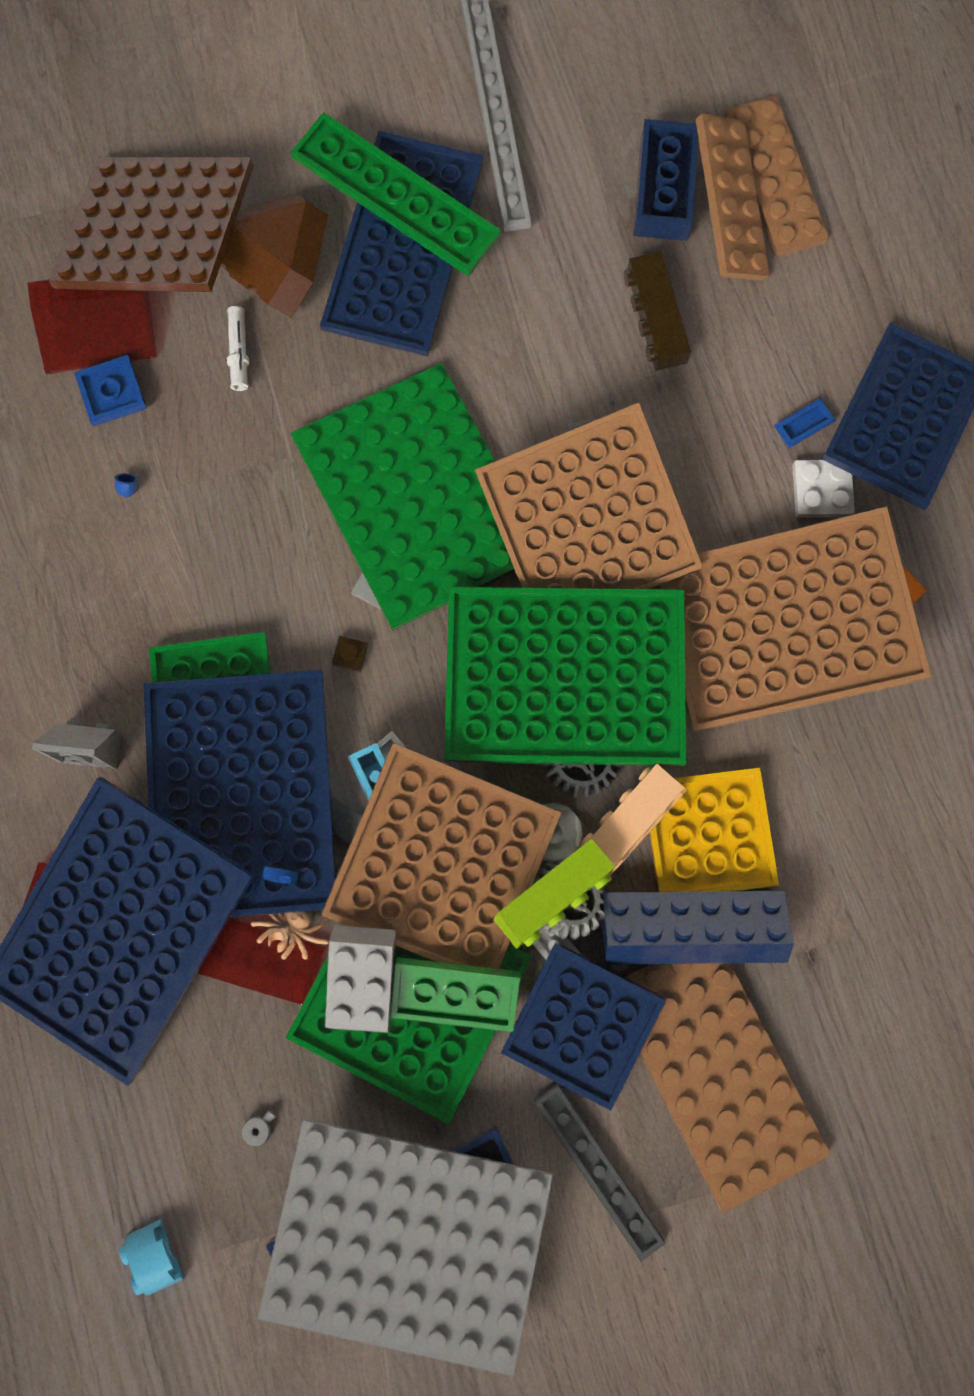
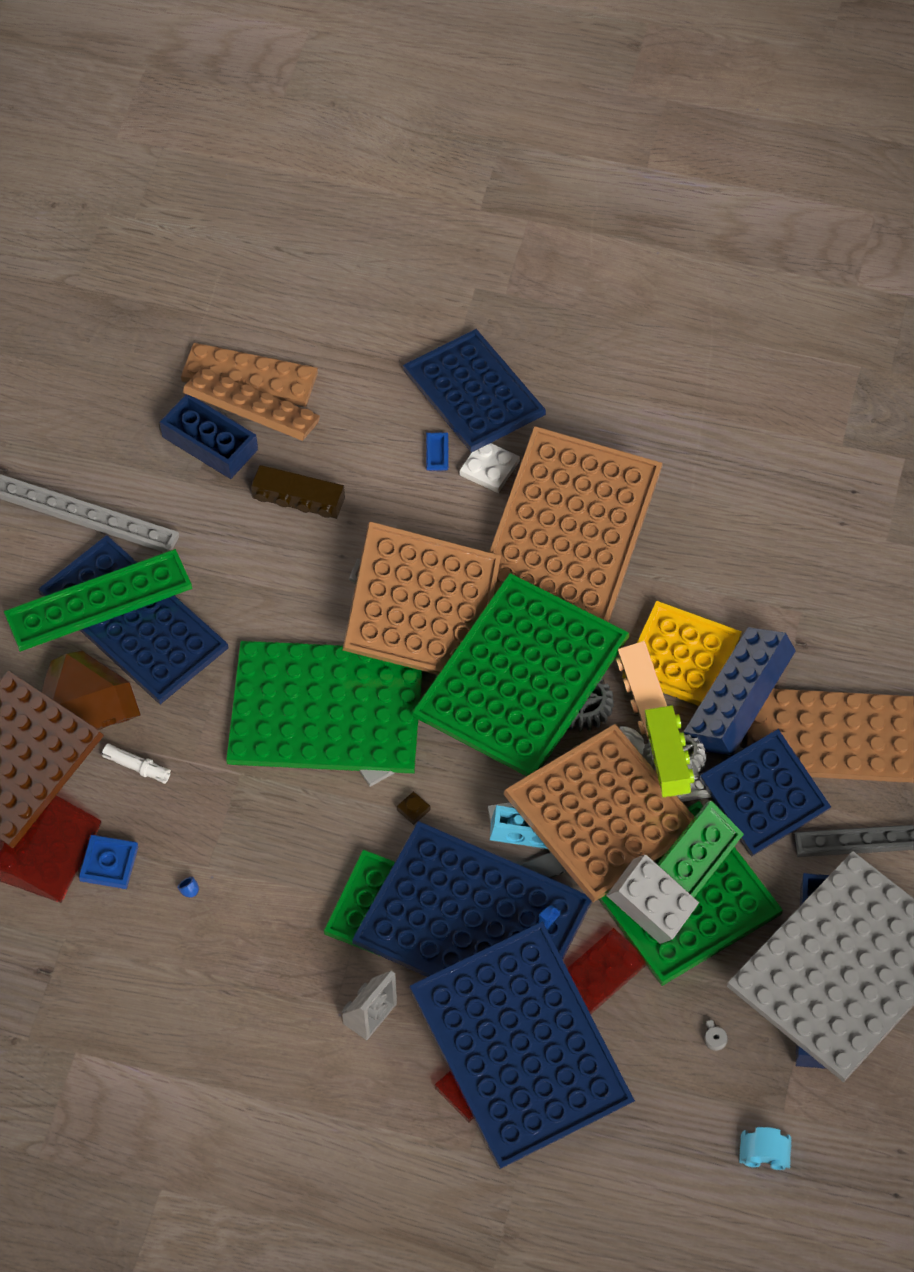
camera: 55 degrees left, 20 degrees down
(291, 927) = (589, 938): light nougat animal -> none

